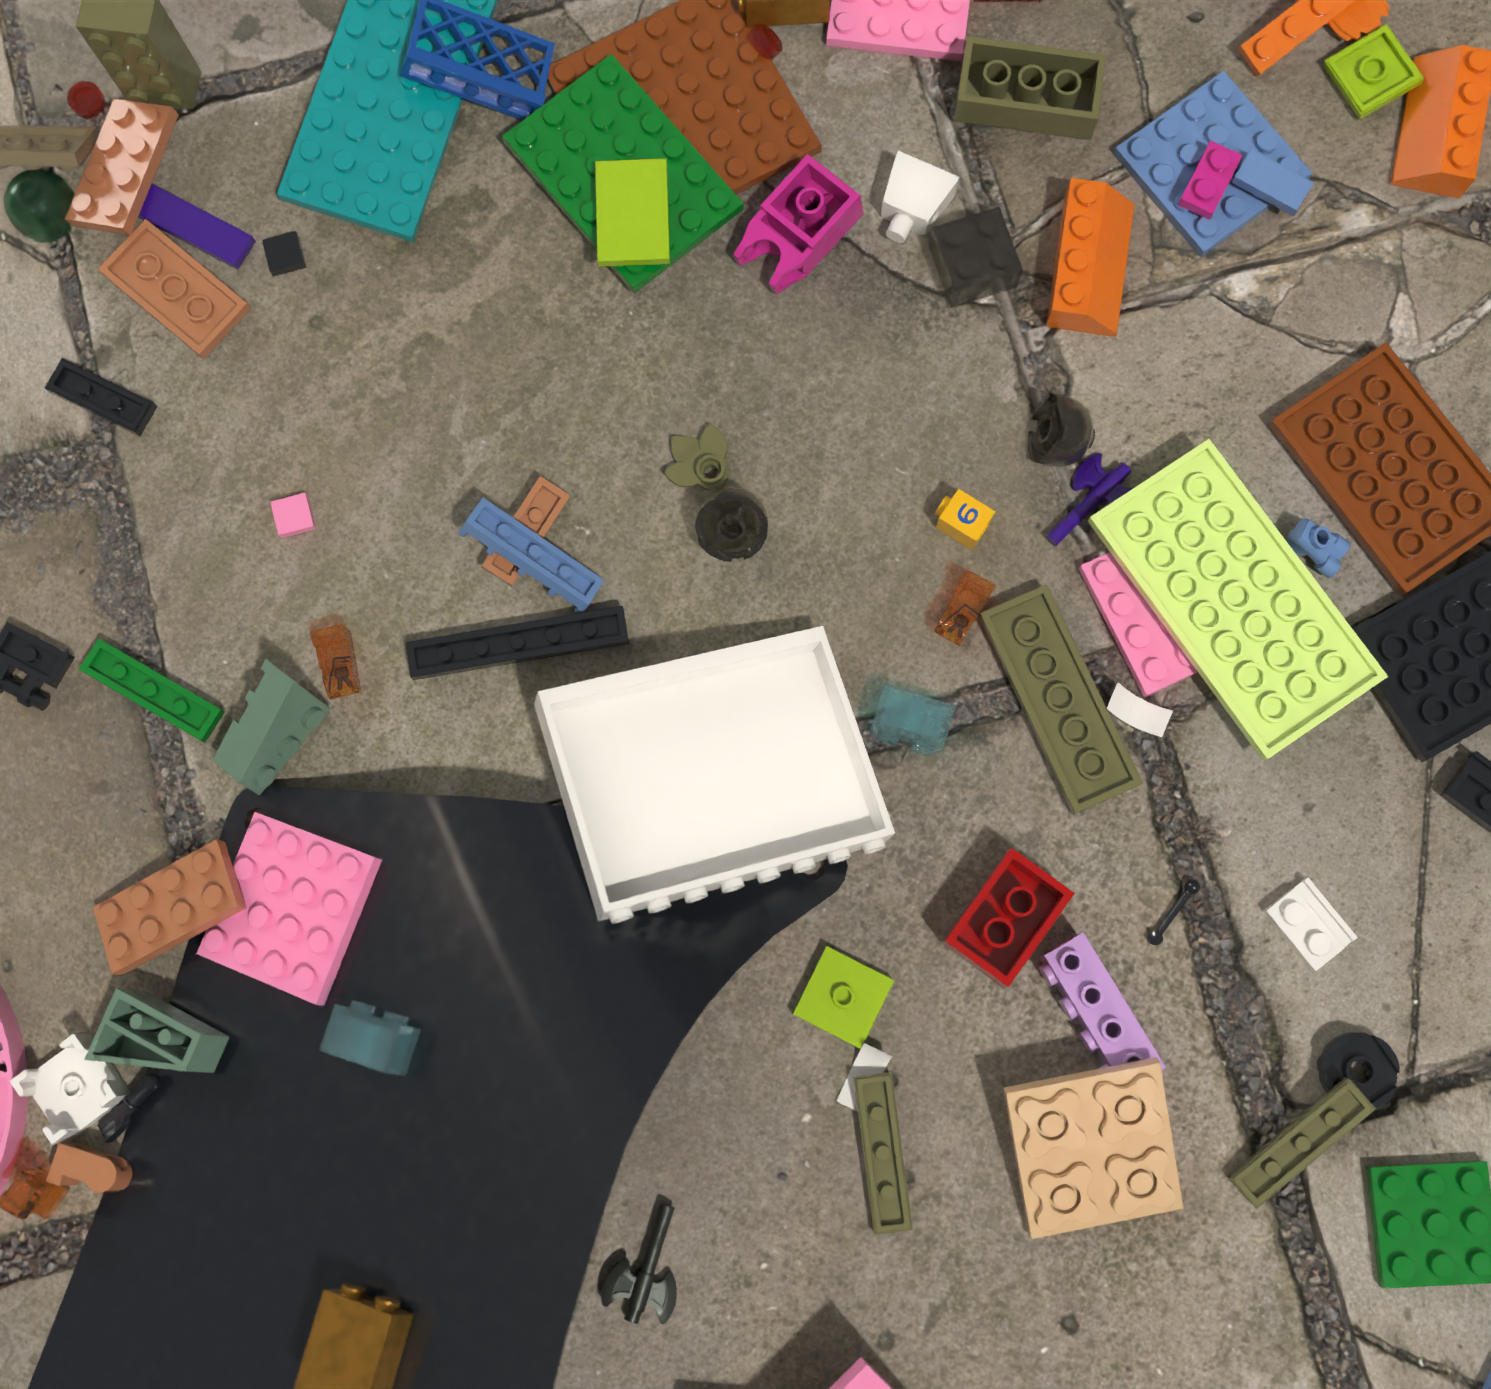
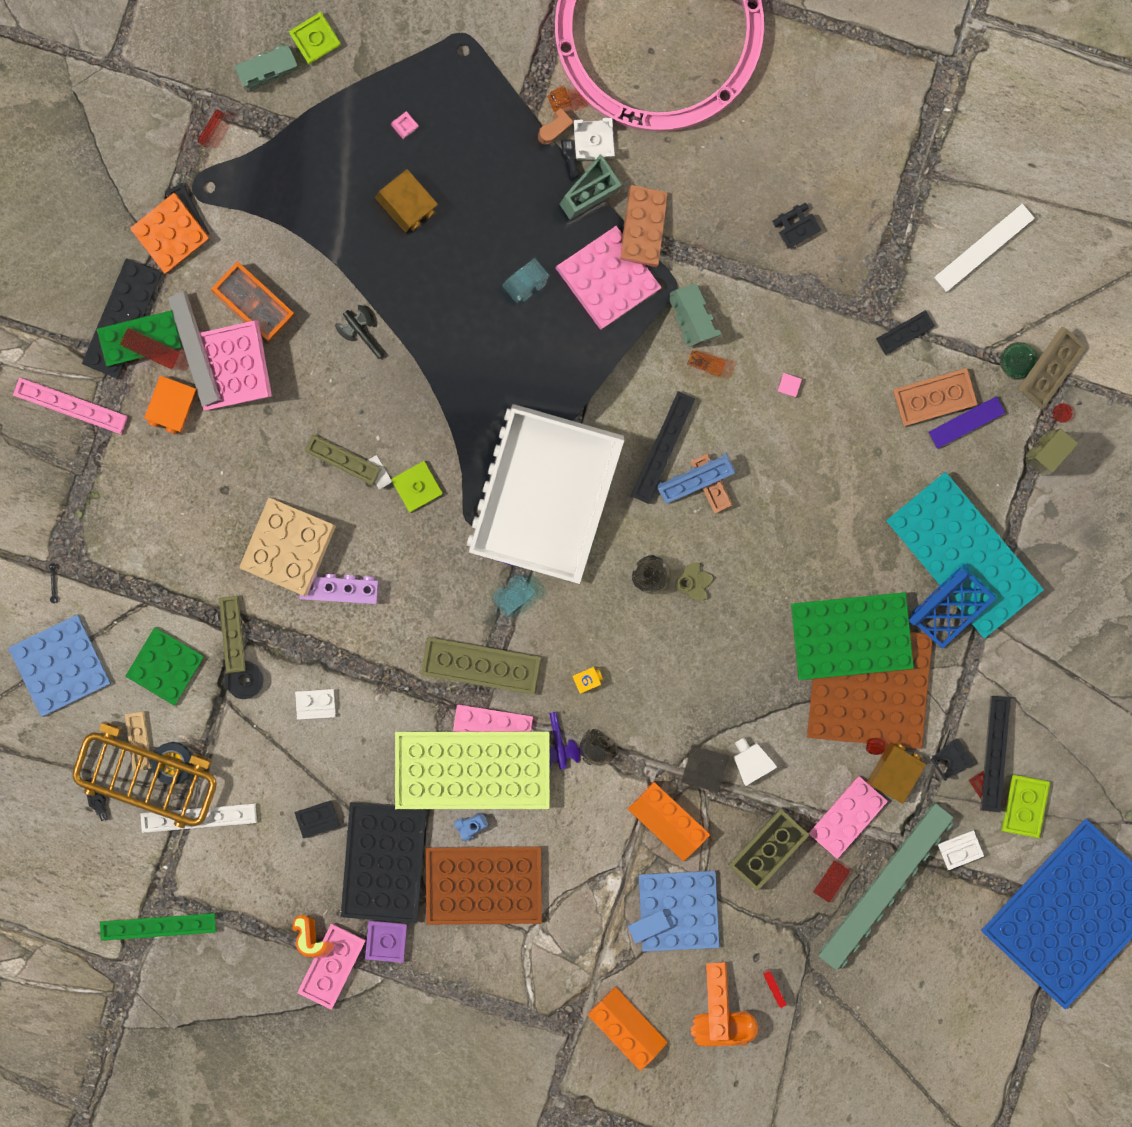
camera: 120 degrees right, 10 degrees up
(122, 166) = (1012, 409): nougat plate -> none
(151, 690) = (748, 274): green plate -> none
(284, 253) = (920, 458): black tile -> none
(632, 212) = (824, 625): lime tile -> none
(800, 222) = (770, 693): dark pink brick -> none
(964, 607) = (547, 651): clear orange leg -> none
(1007, 918) = (403, 576): red brick -> none
(1138, 712) = (453, 696): white sticker -> none
(1155, 937) = (353, 635): black hinge -> none
(1210, 180) = (668, 899): dark pink plate -> none
(1373, 71) = (672, 1015): lime plate -> none

